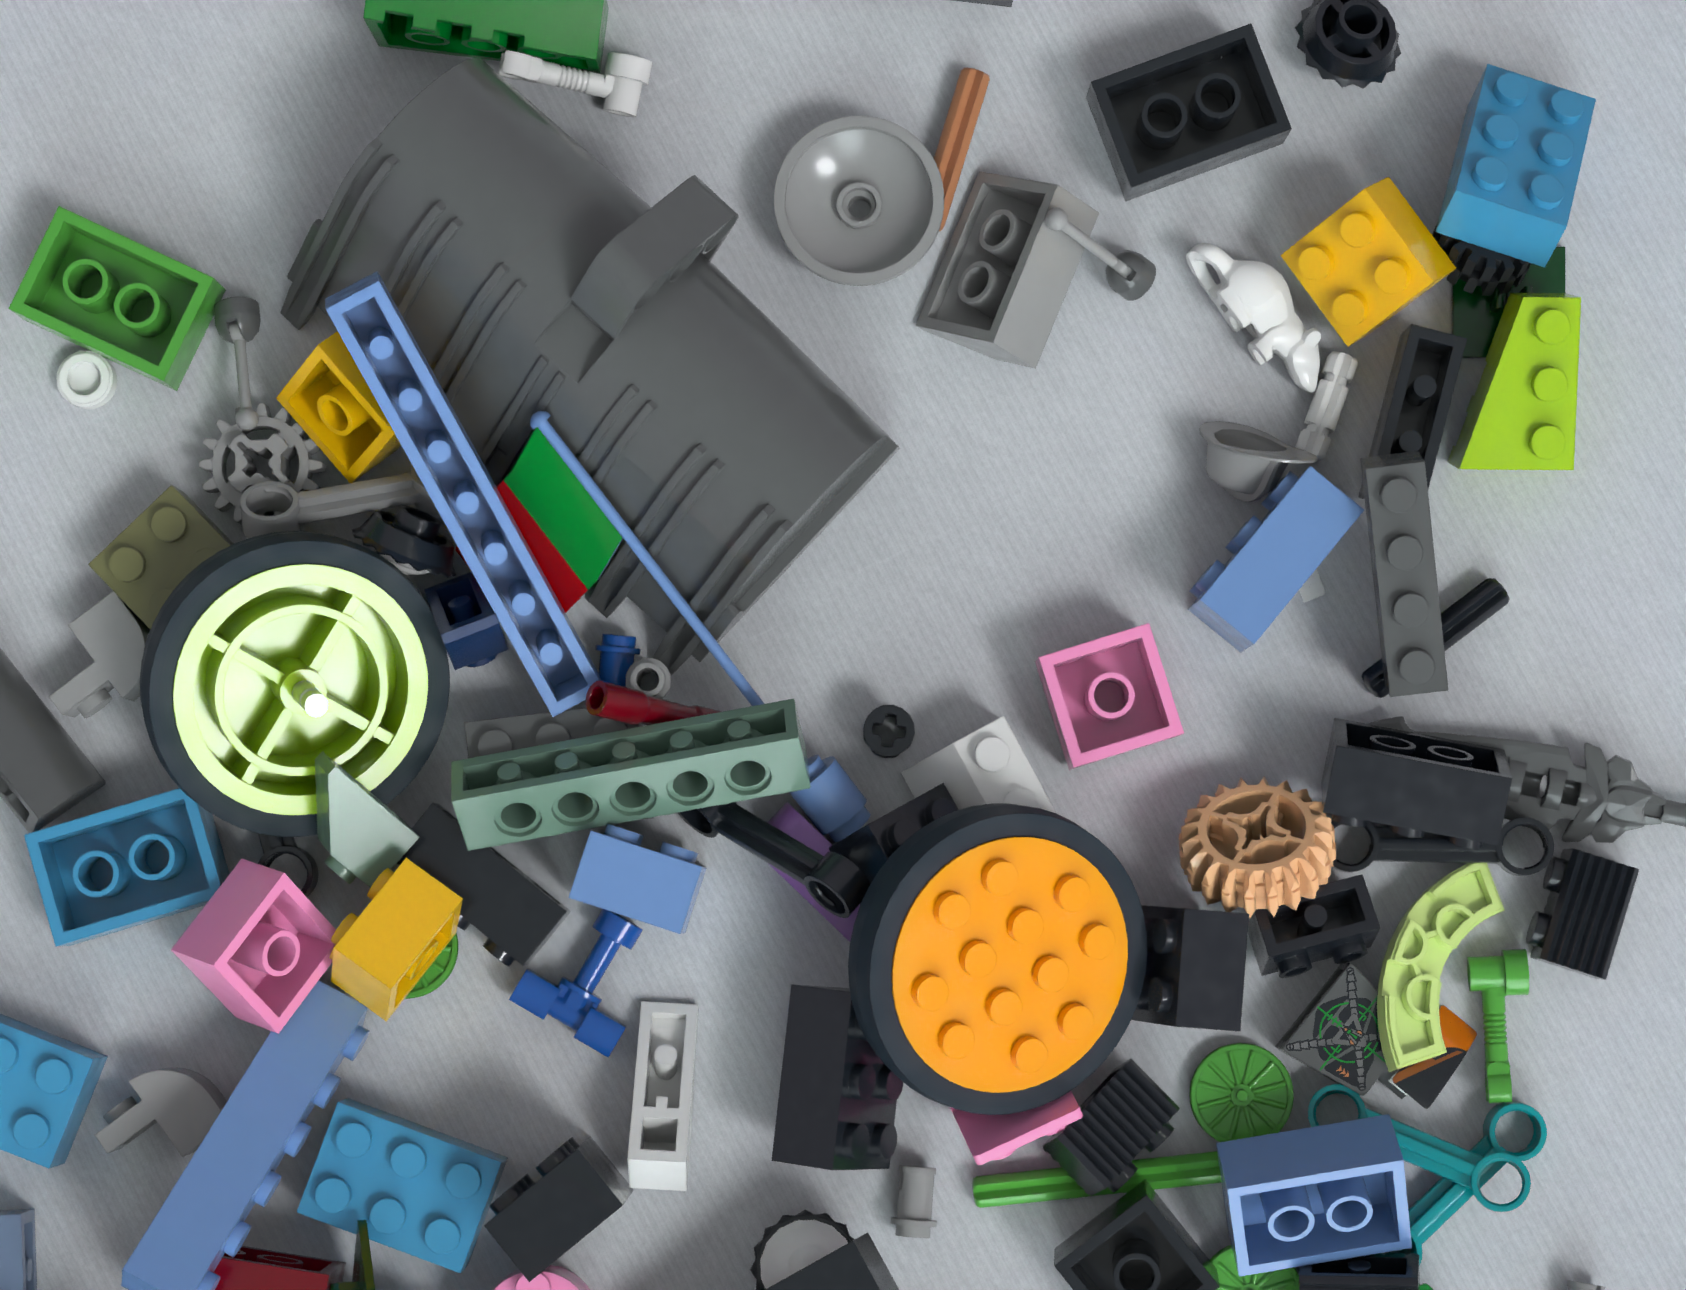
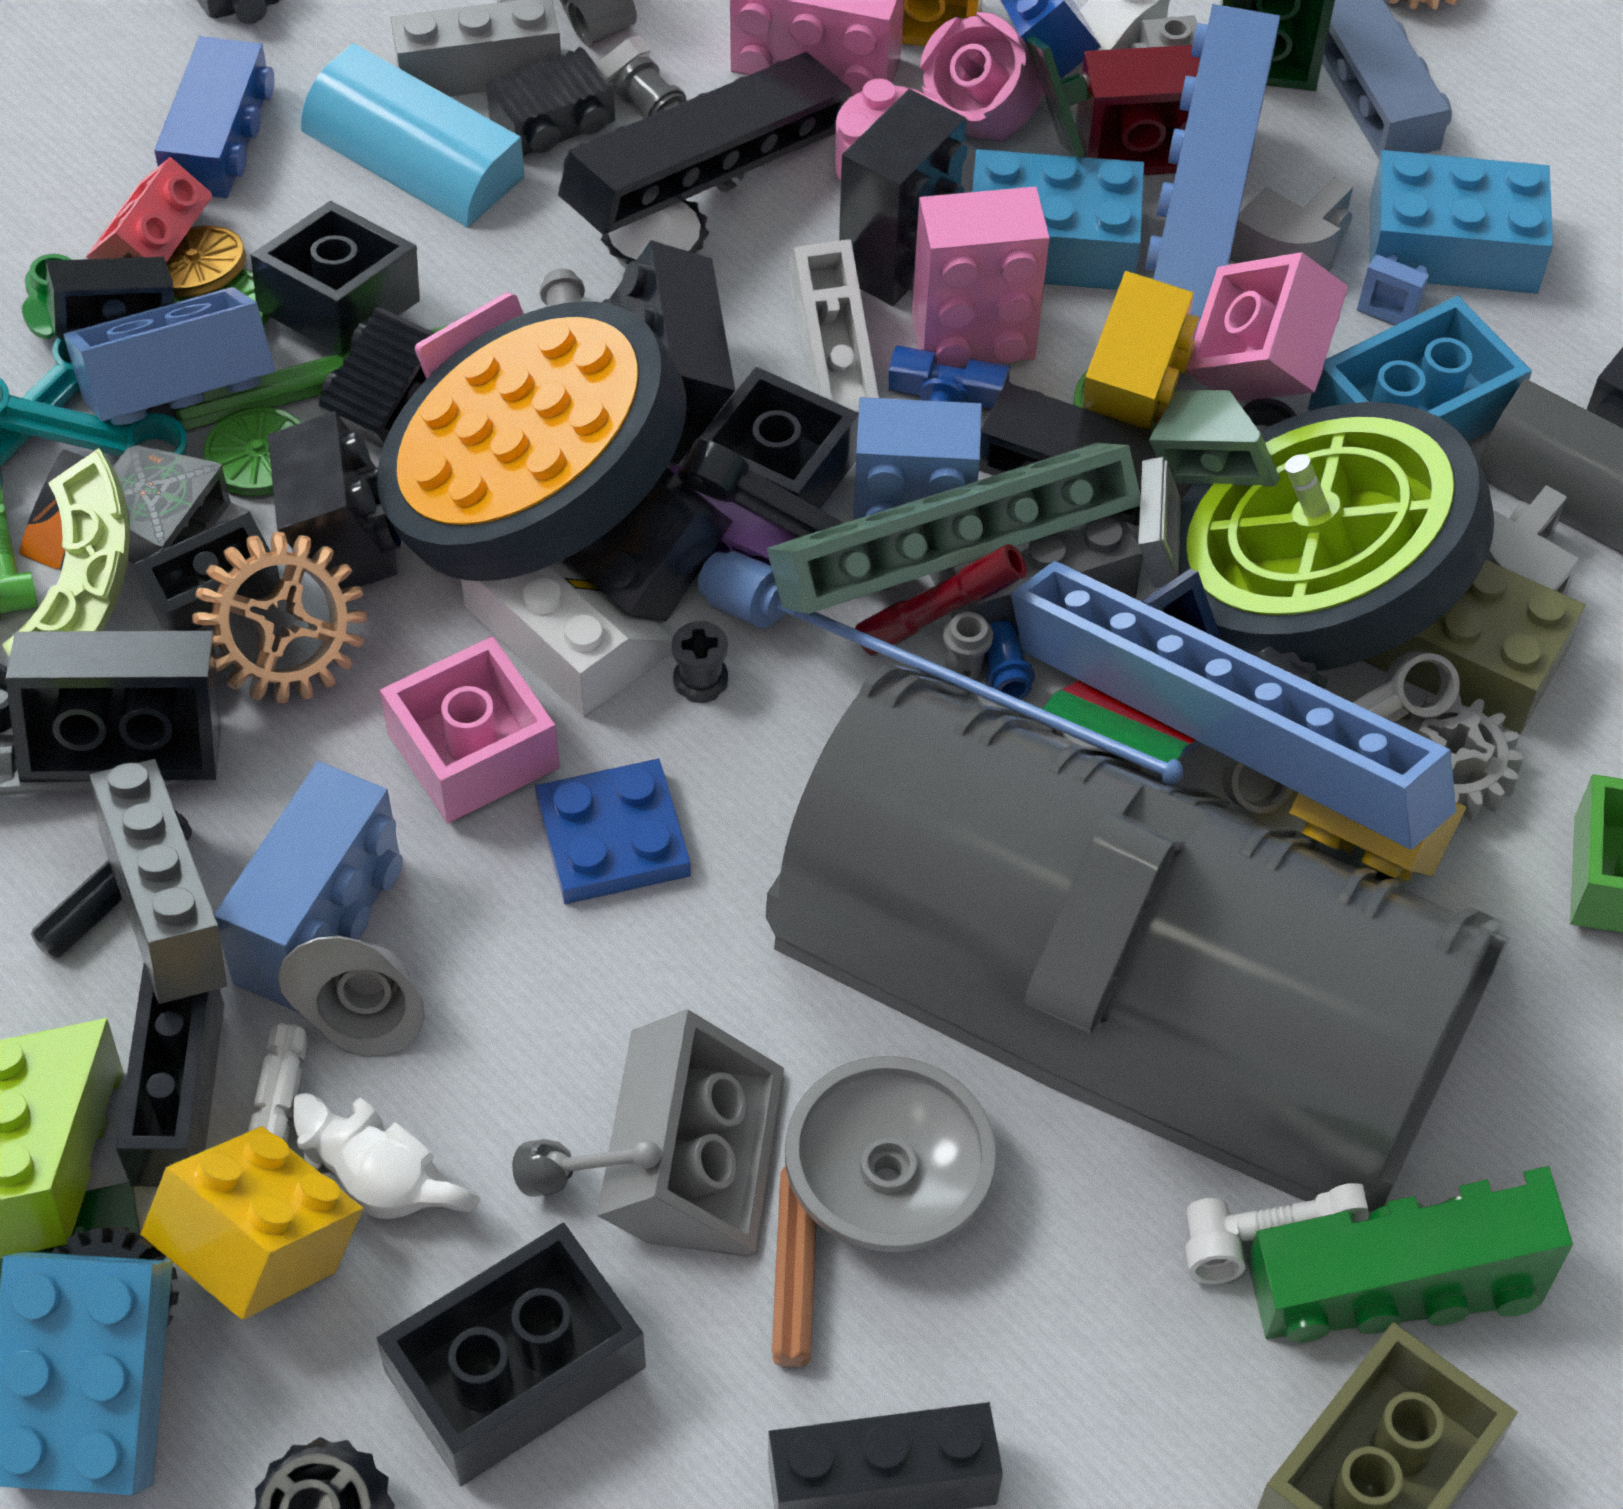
camera: 165 degrees right, 30 degrees down
(100, 1009) = (1392, 290): none -> medium blue tile
(238, 323) = (1539, 882): hinge -> none
(439, 747) = (1159, 521): none -> light grey tile
(514, 1077) = (980, 275): none -> bright pink brick
(760, 943) = (788, 435): none -> black brick
(1003, 585) = (612, 831): none -> blue plate

